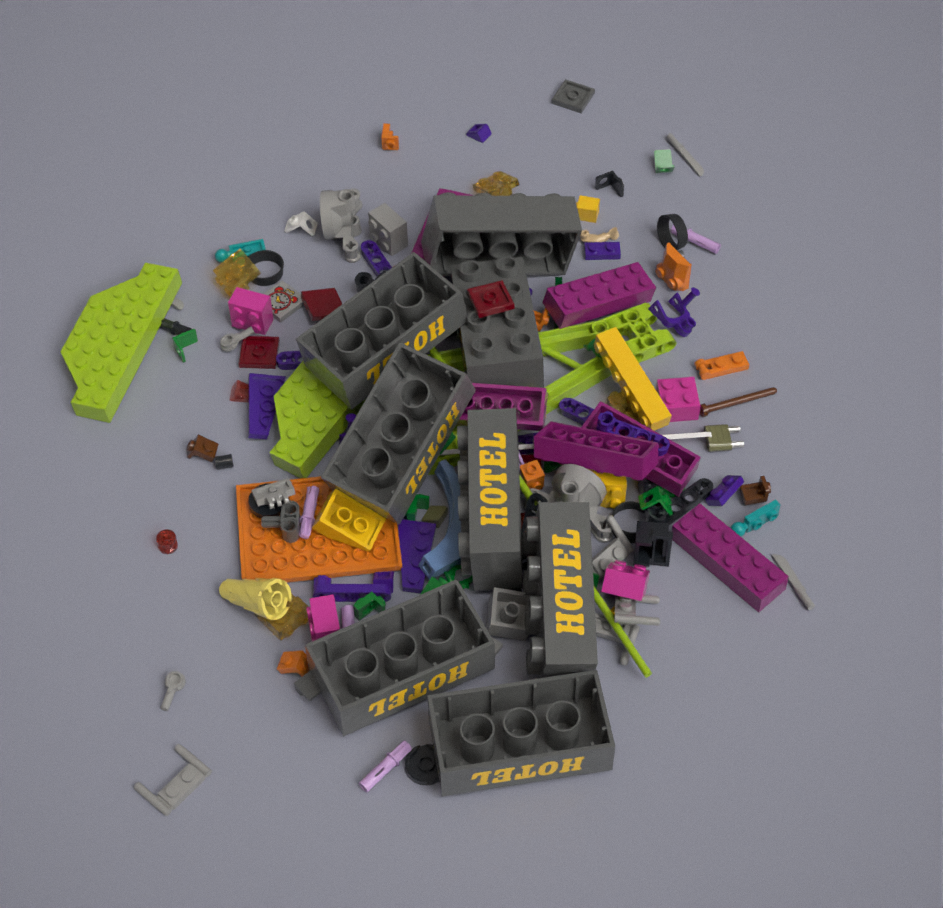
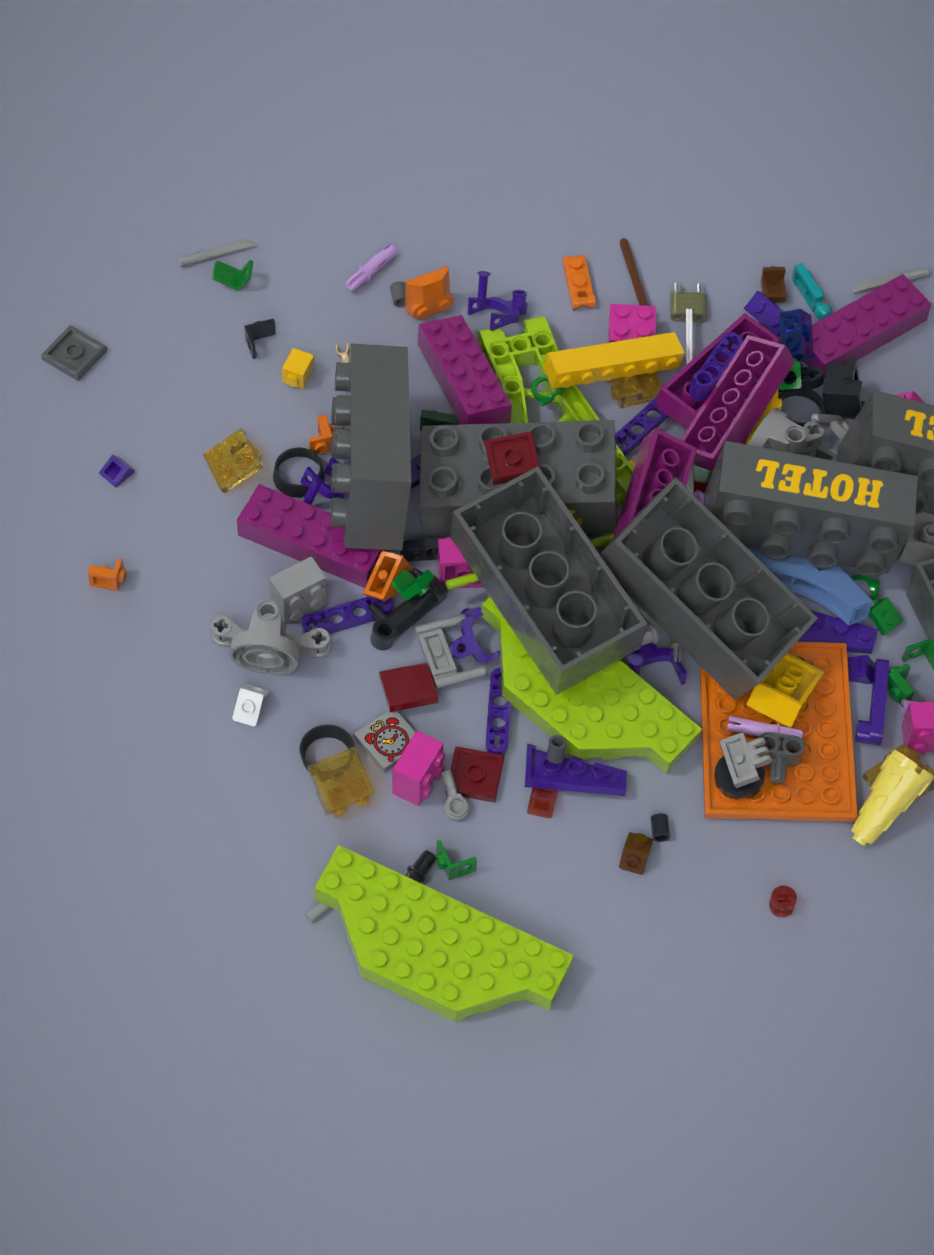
camera: 85 degrees left, 5 degrees up
(247, 247) = (289, 778): teal plate -> none
(276, 384) = (556, 749): none -> dark grey hinge
(664, 232) = (375, 296): black tyre -> none
(685, 505) = (797, 334): none -> clear blue brick

